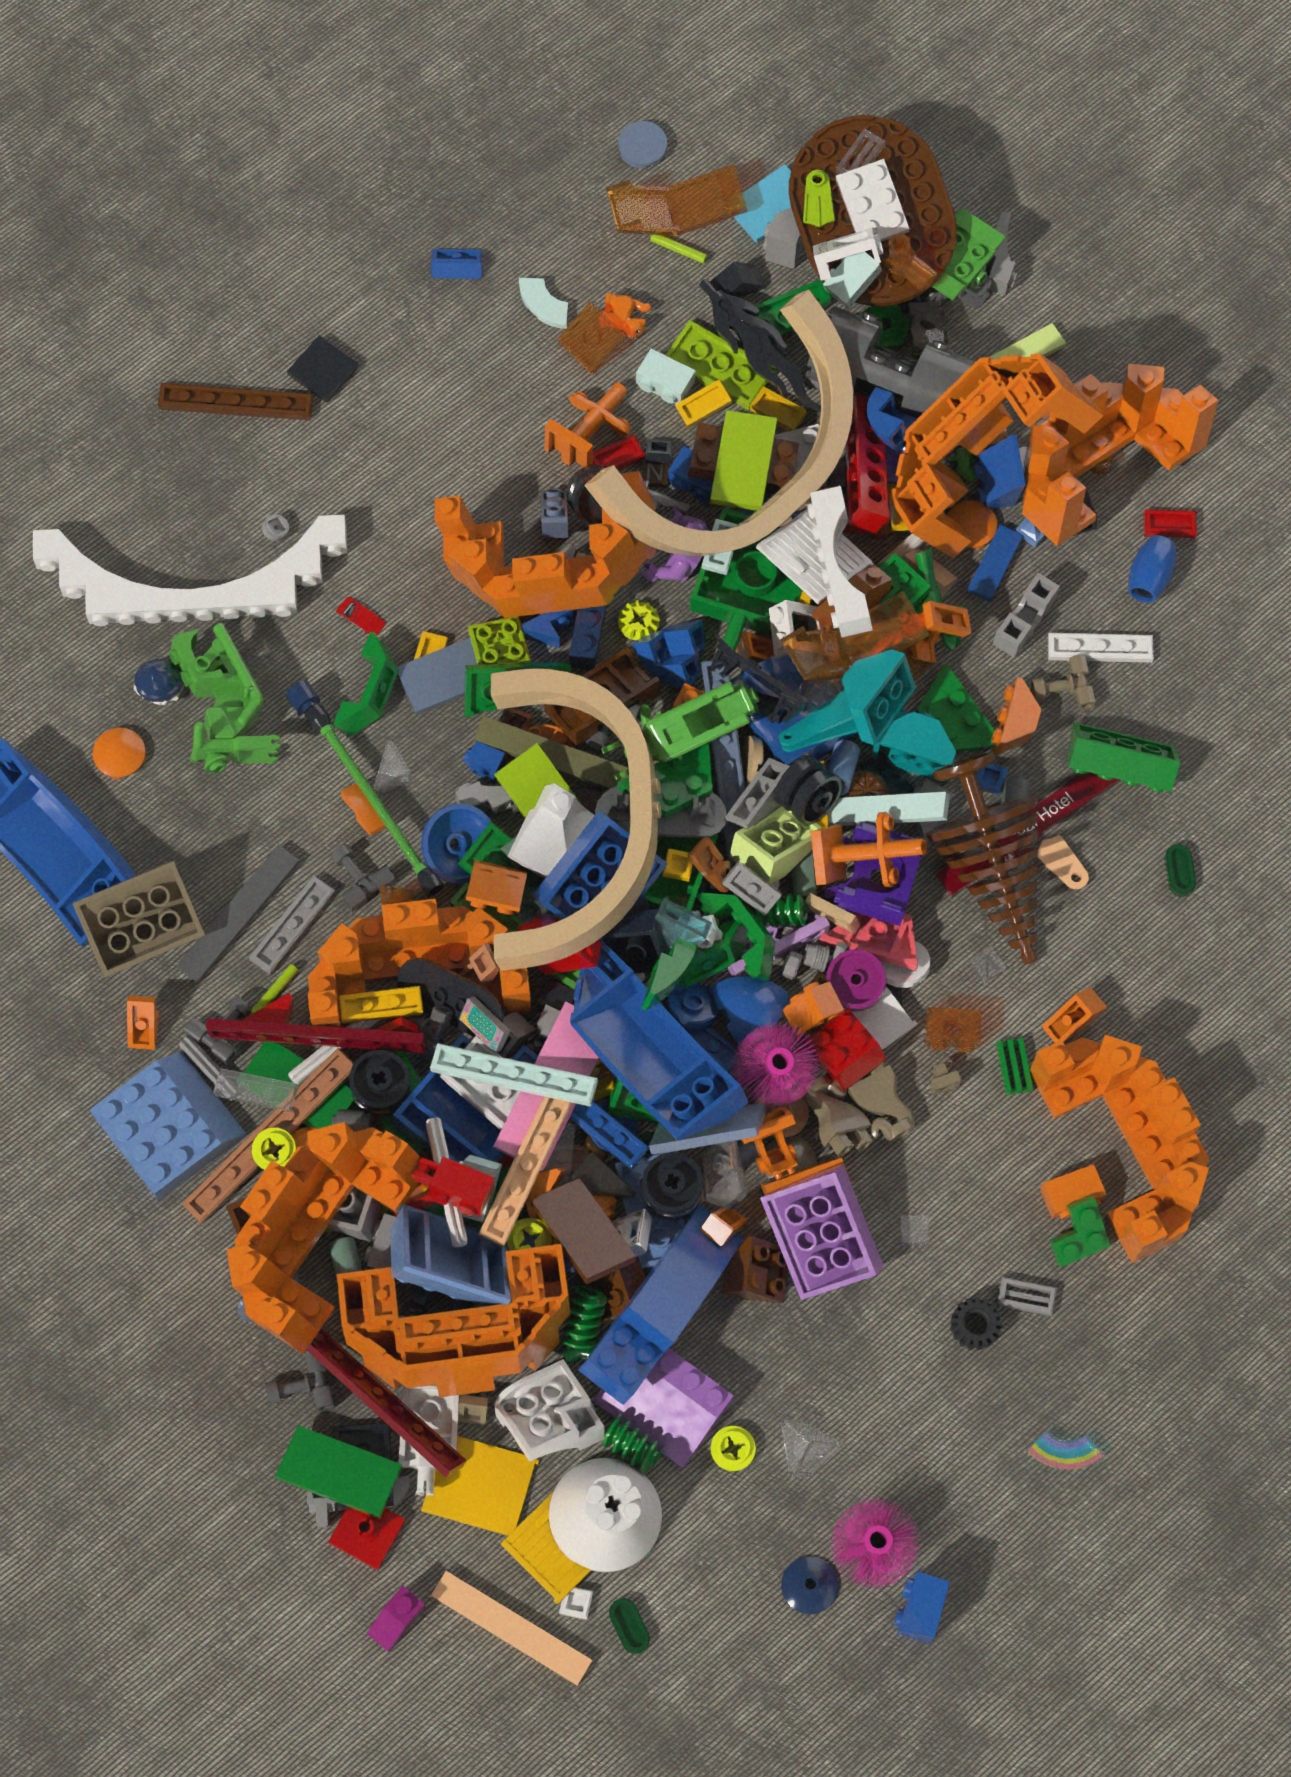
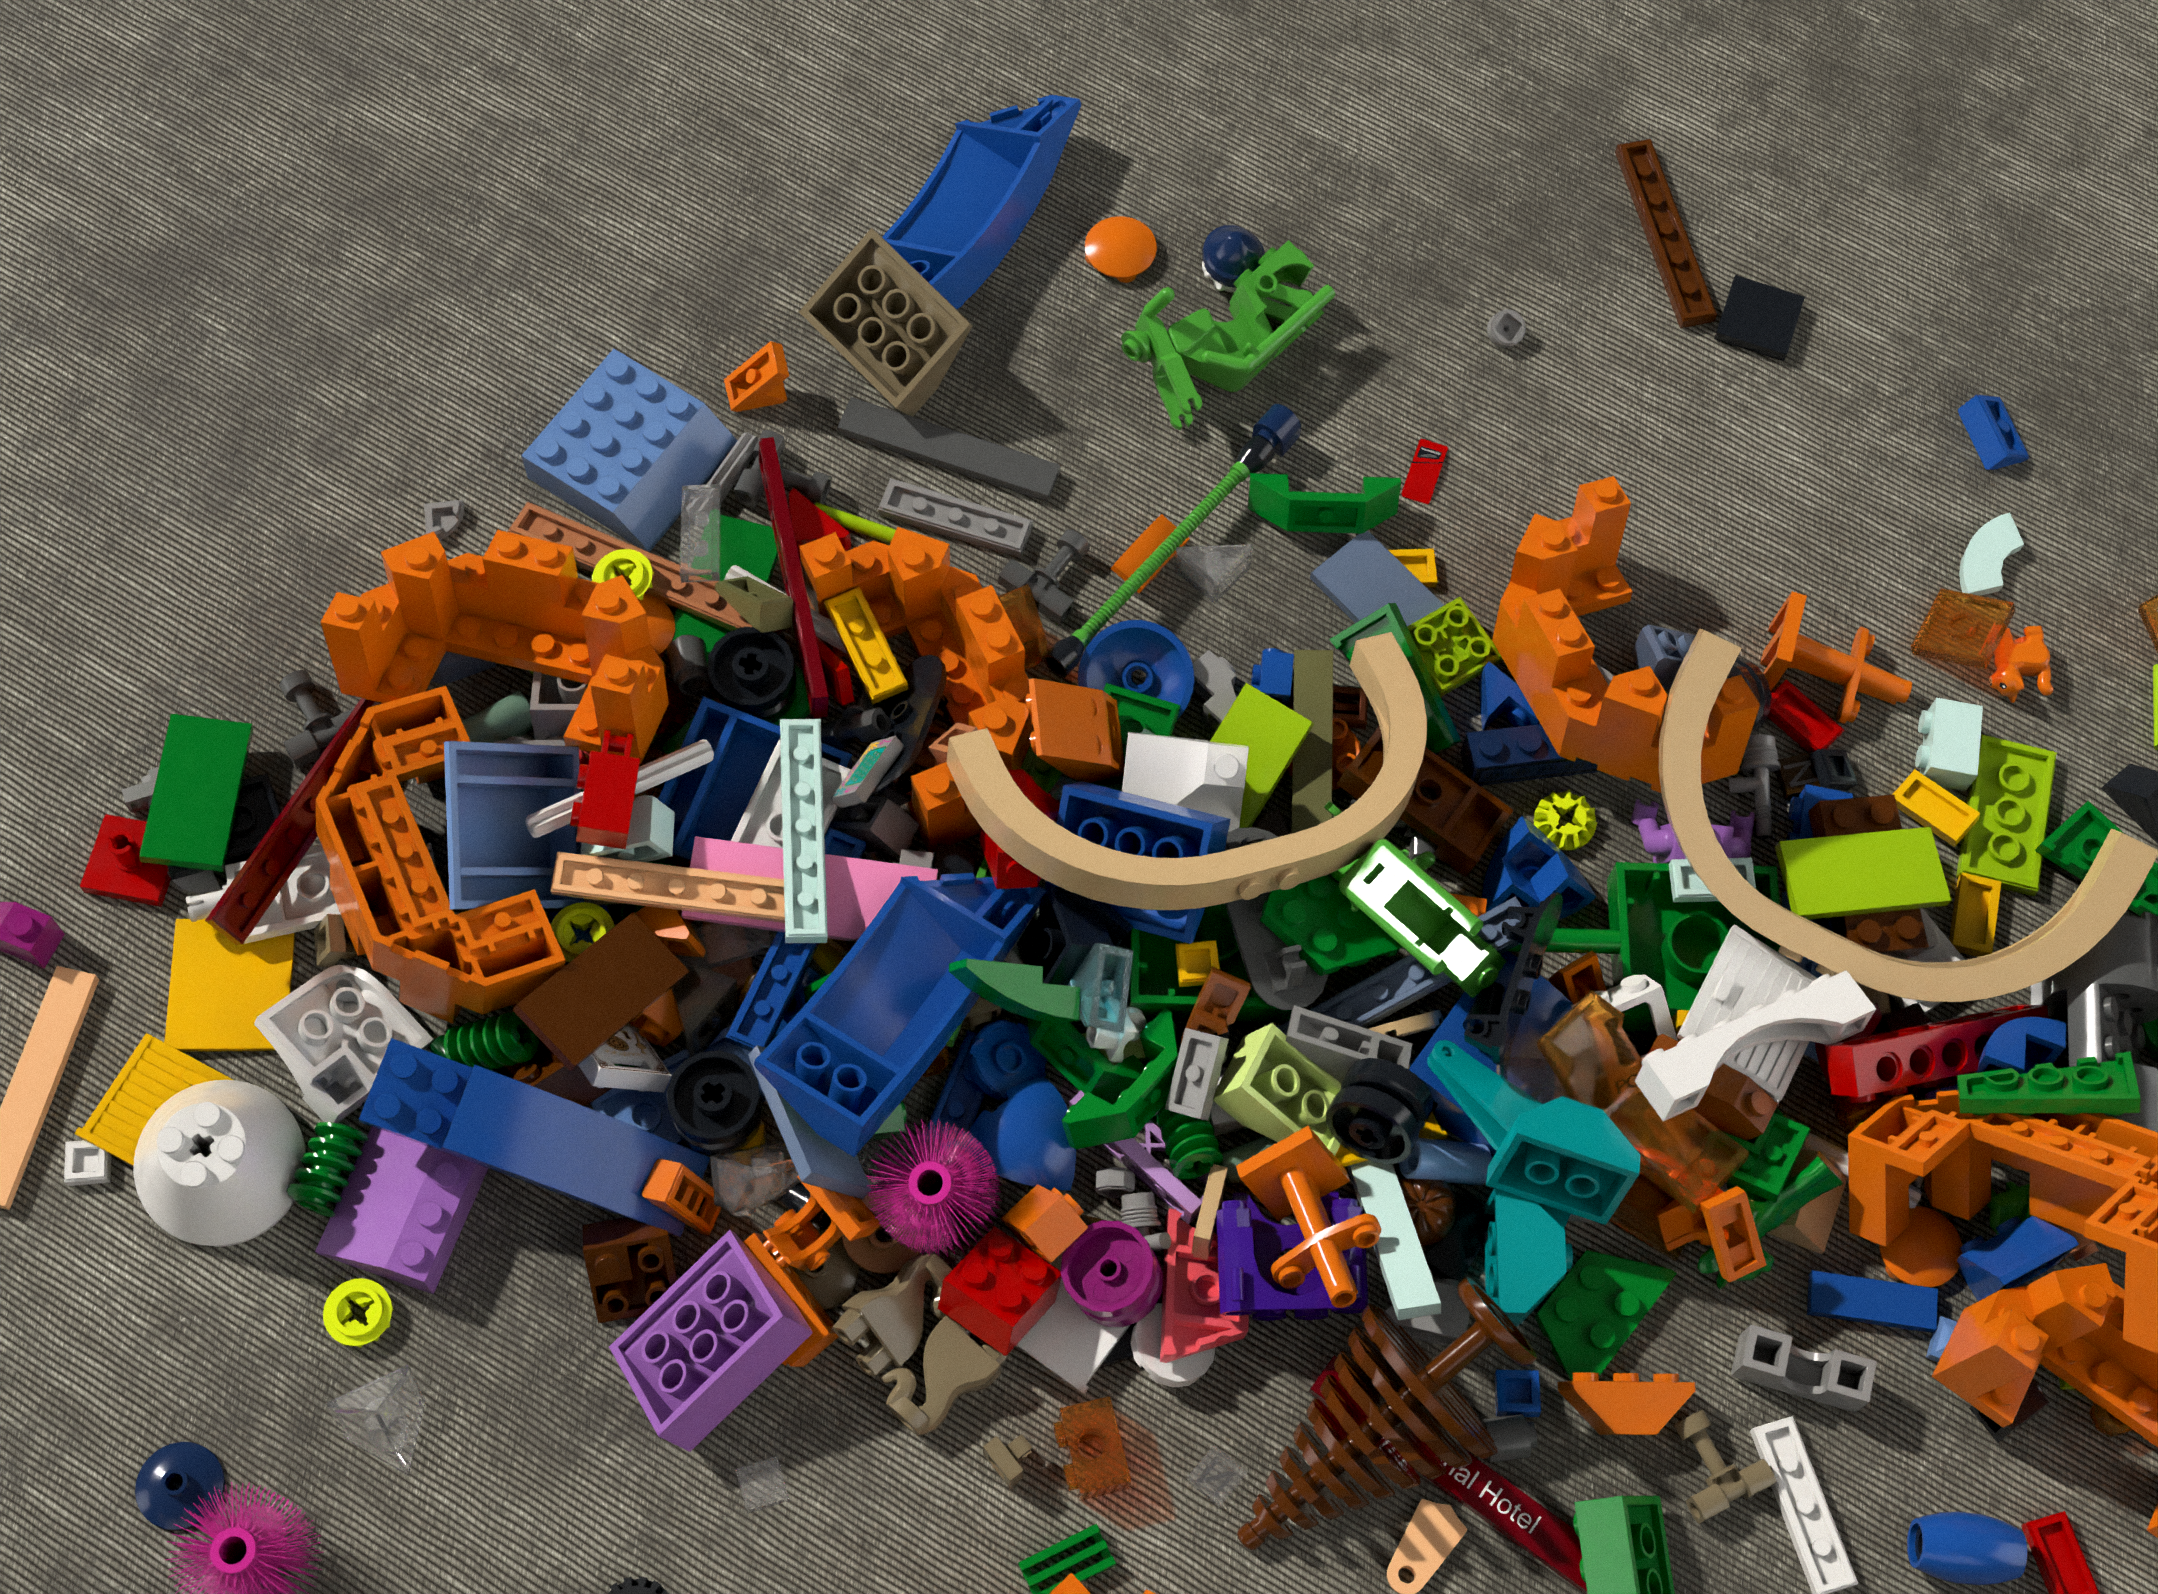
camera: 70 degrees right, 5 degrees down
(172, 1266) = (443, 517): none -> light grey tile
(262, 593) = (1410, 343): white arch -> none
(331, 1062) = (757, 603): none -> olive slope
(629, 1626) = (67, 1245): dark green tile -> none
(754, 333) = (2089, 799): black piece -> none
(926, 398) = (2072, 1090): none -> green wing

